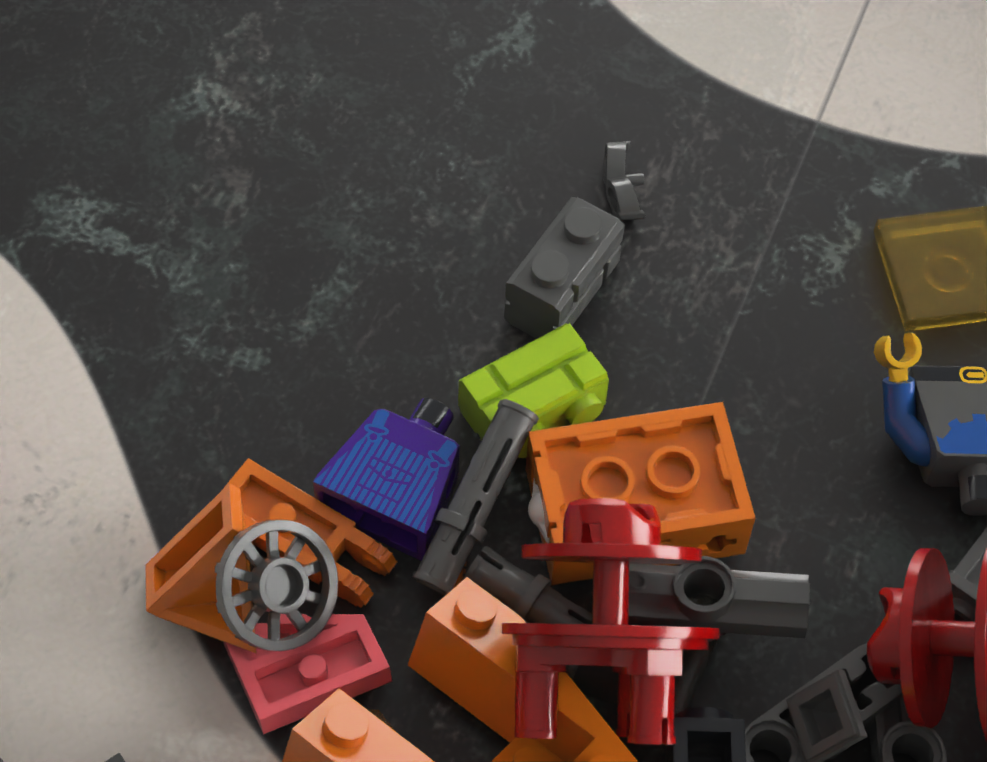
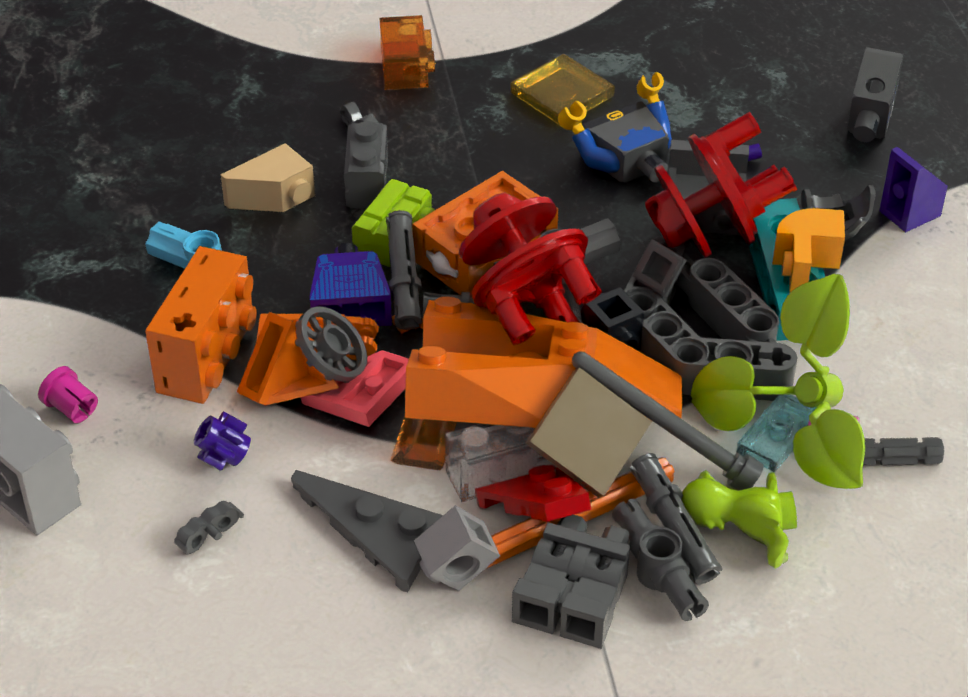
camera: 30 degrees left, 15 degrees down
(53, 651) = (222, 440): none -> dark purple gear
(146, 443) = (201, 325): none -> orange piece
(234, 294) = (177, 244): none -> medium azure piece
(418, 230) = (269, 182): none -> tan slope
(757, 90) = (405, 52): none -> clear orange brick

